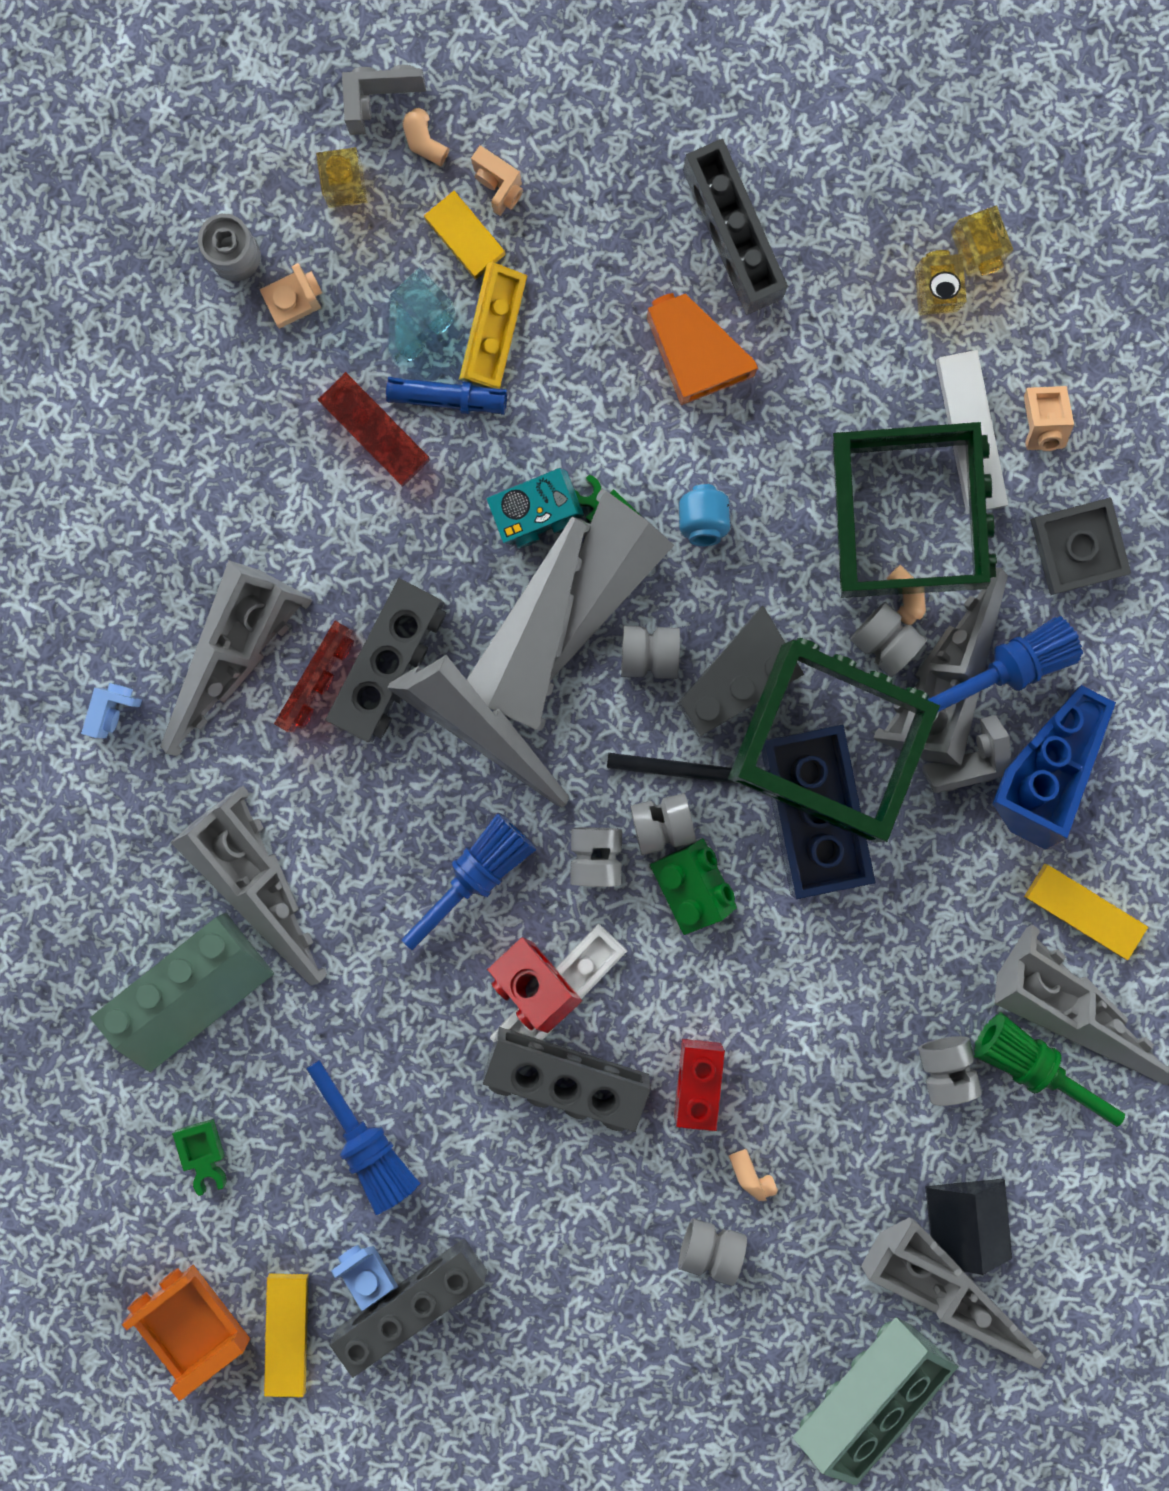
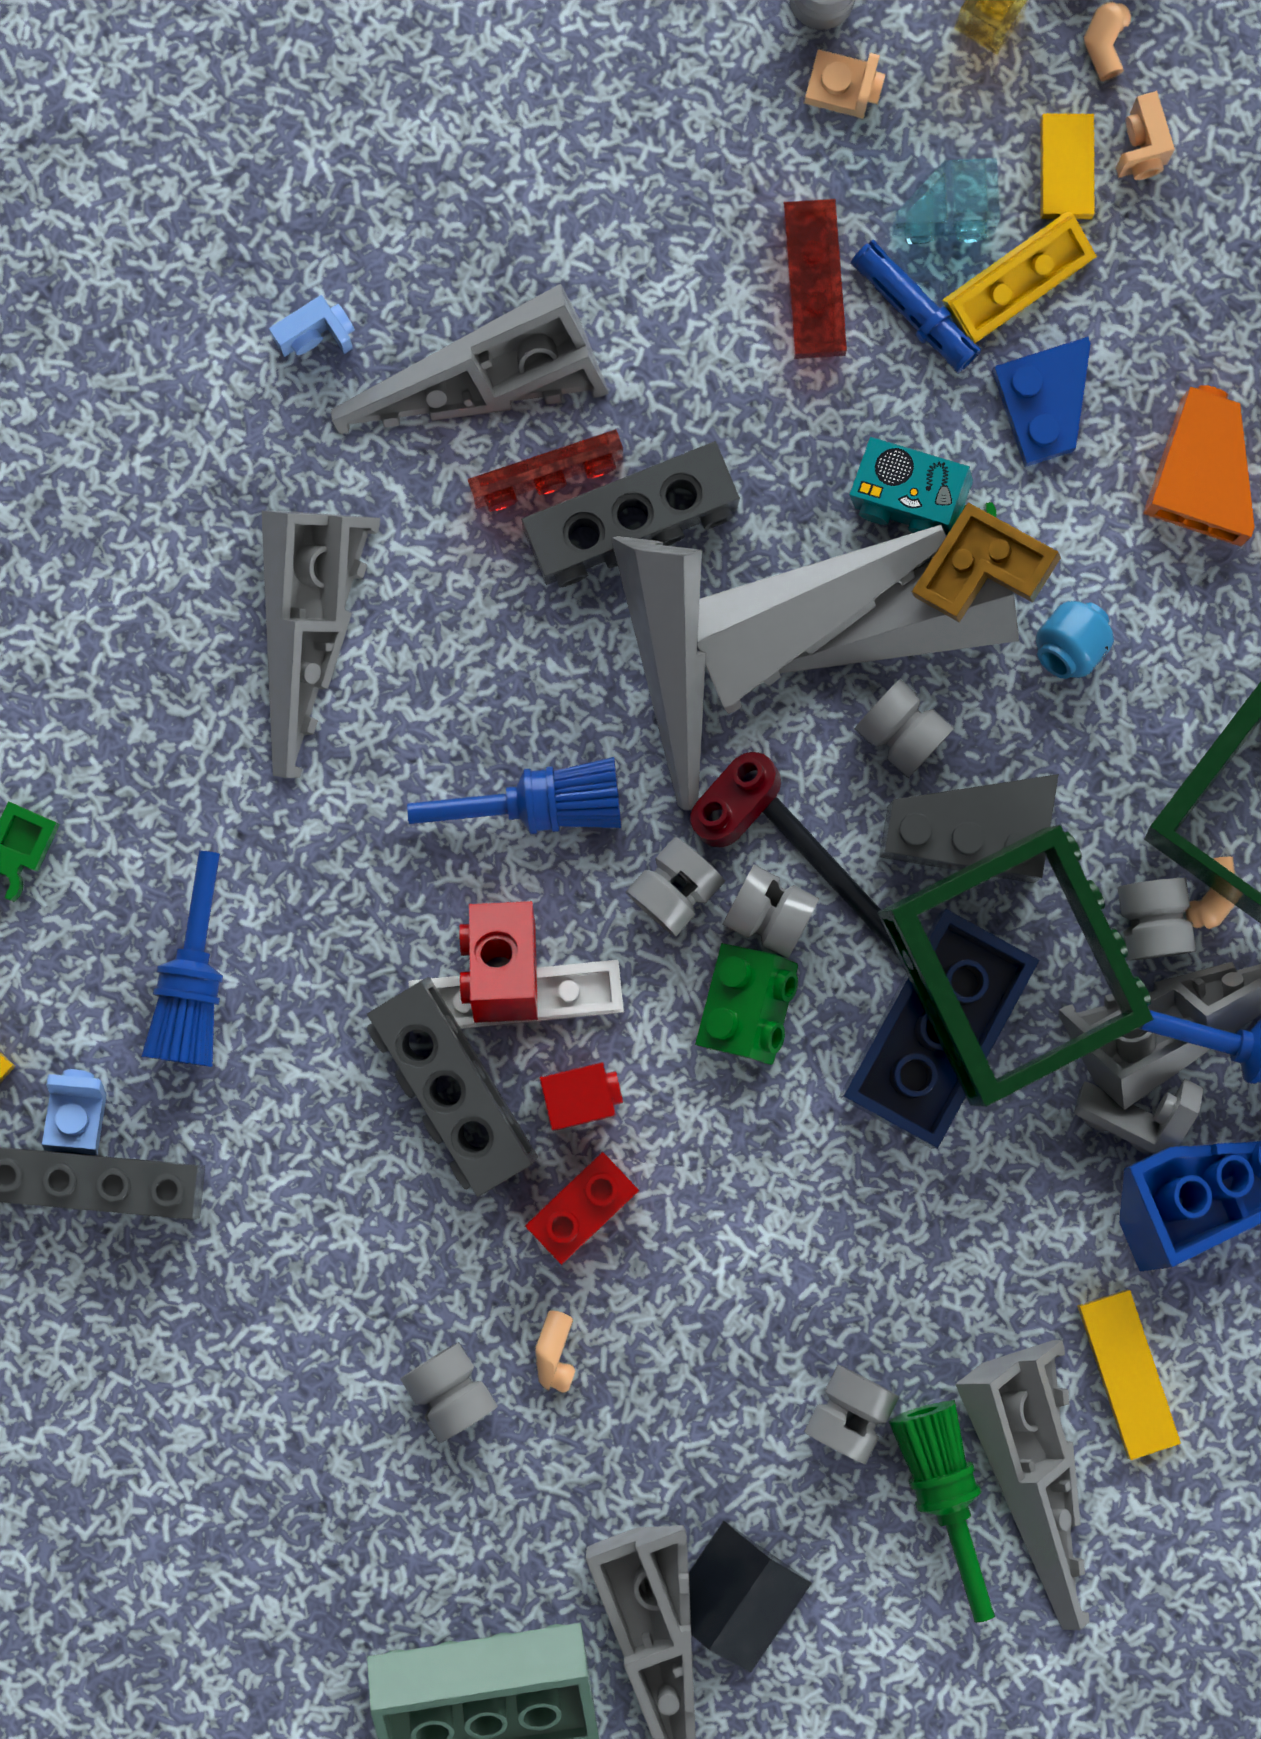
camera: 40 degrees right, 5 degrees down
(183, 994) = (141, 671): sand green slope -> none
(568, 386) = (1045, 399): none -> blue wing
(590, 775) = (739, 800): none -> dark red plate
(606, 514) = (978, 550): none -> pearl gold plate
(645, 1026) = (580, 1095): none -> red brick

